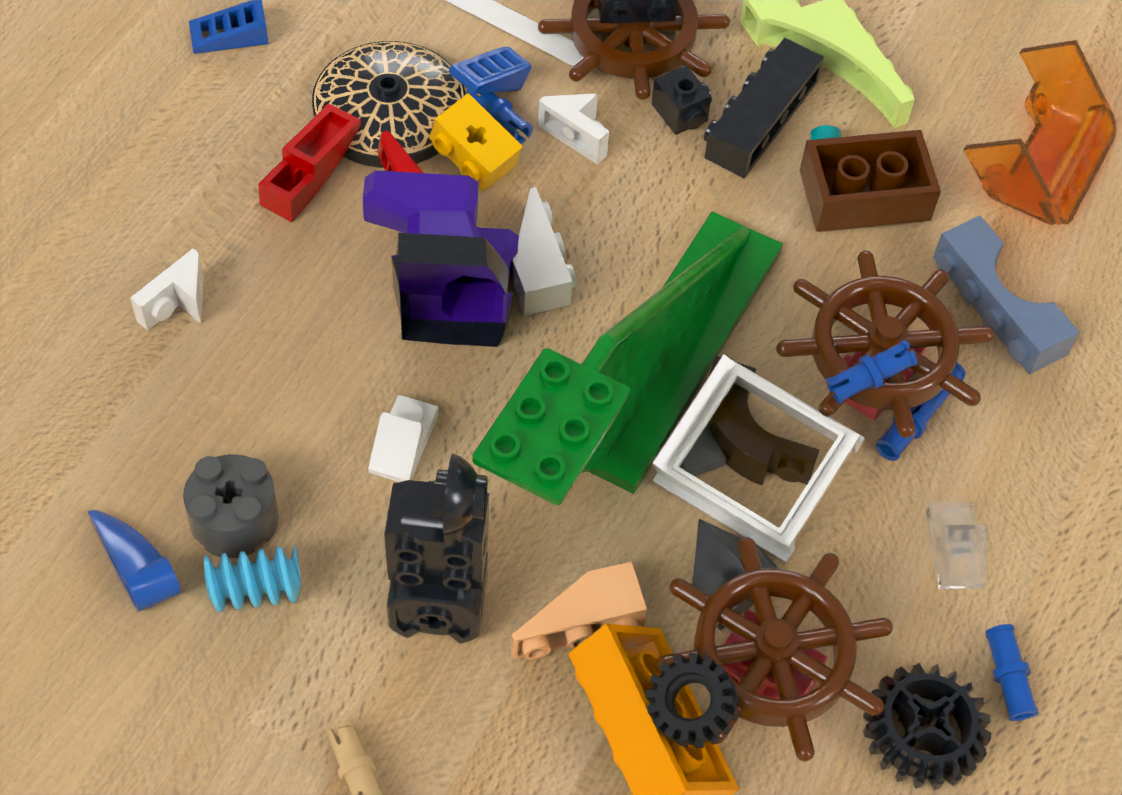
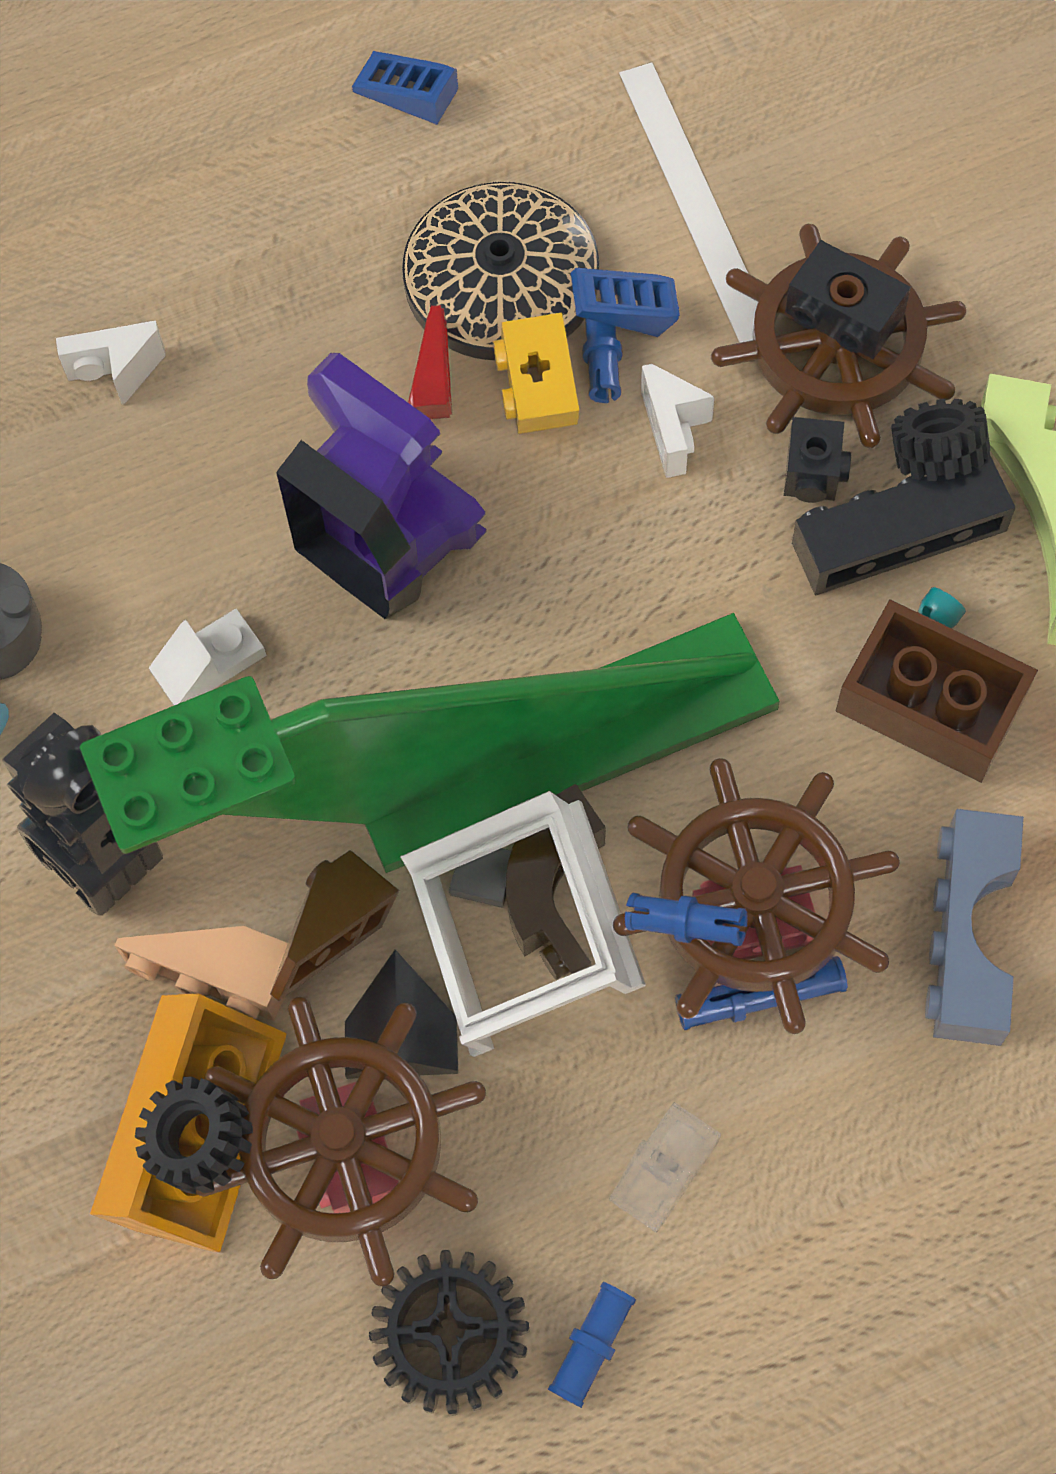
camera: 45 degrees right, 10 degrees up
(308, 162) = (356, 289): red slope -> none
(539, 270) = (487, 559): white slope -> none
(638, 529) = (339, 911): none -> reddish brown slope
(750, 43) = (941, 439): none -> black tyre

